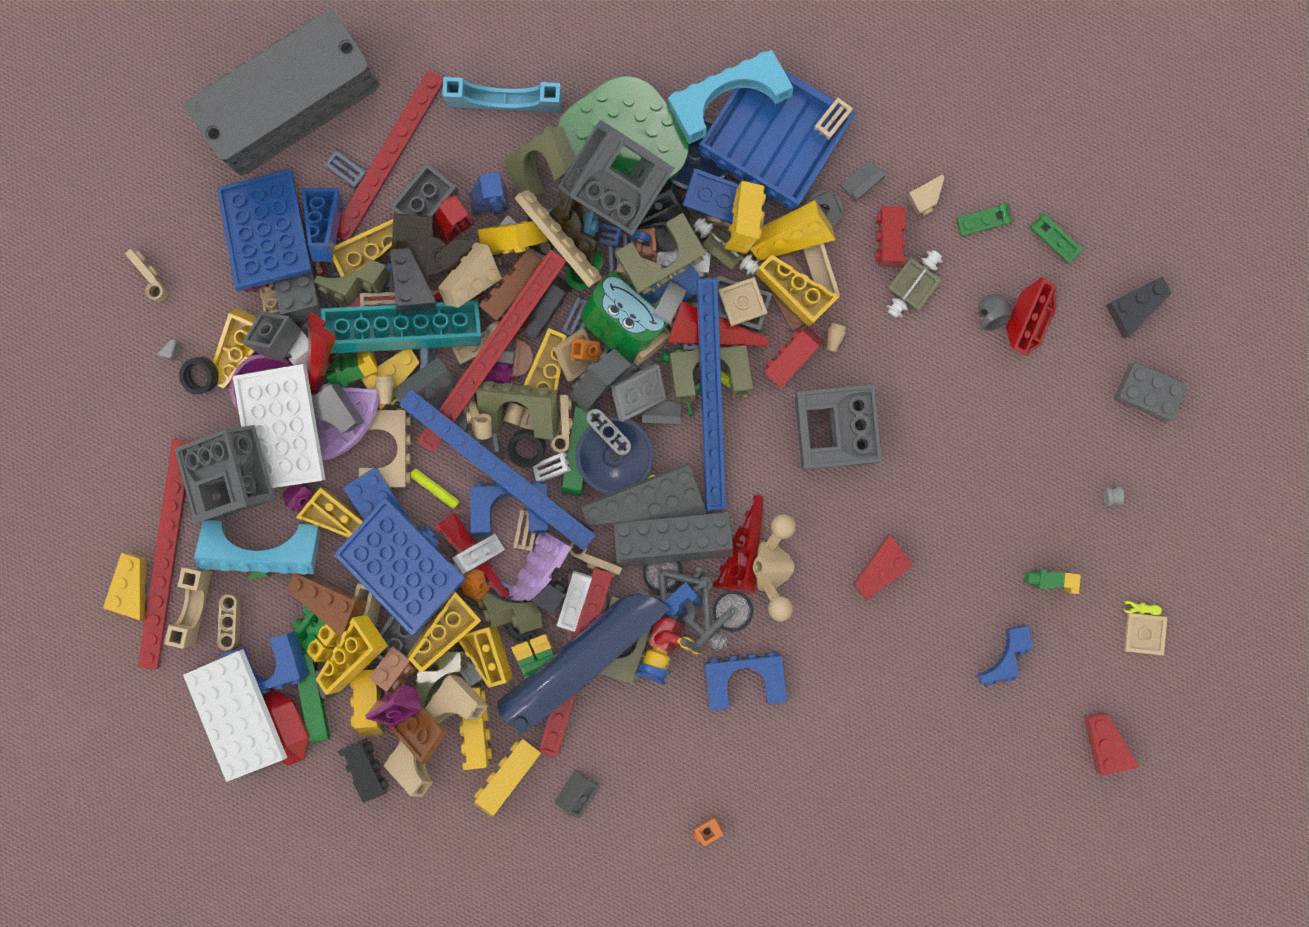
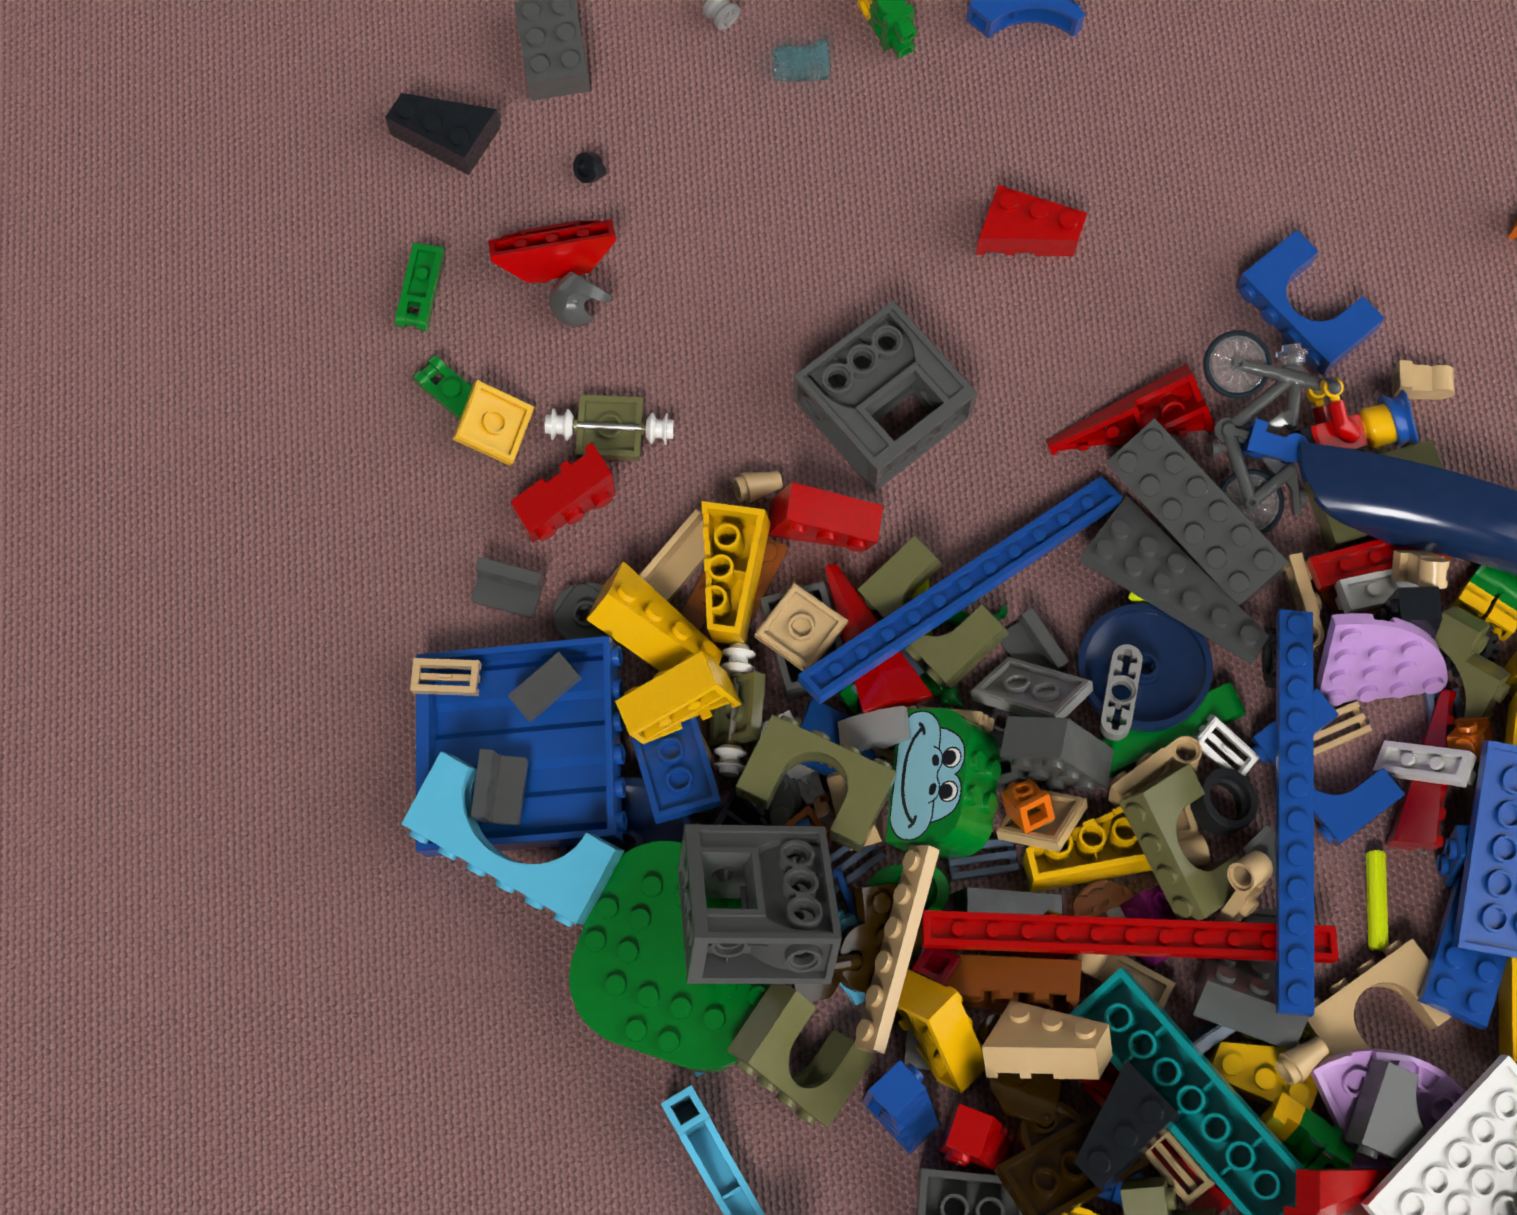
camera: 130 degrees left, 15 degrees down
(538, 254) = (937, 965): none -> dark red plate
(569, 621) = (1420, 568): none -> tan leg
(666, 707) = (1423, 380): none -> tan leg
(759, 107) = (499, 788): none -> dark grey panel
(775, 567) = (1130, 362): tan piece -> none
(794, 159) = (544, 687): none -> dark grey tile
(926, 196) = (472, 487): tan slope -> none
(954, 227) = (493, 423): none -> yellow tile
(1055, 517) = (802, 62): none -> clear light blue leg
(1066, 367) = (588, 167): none -> black tile

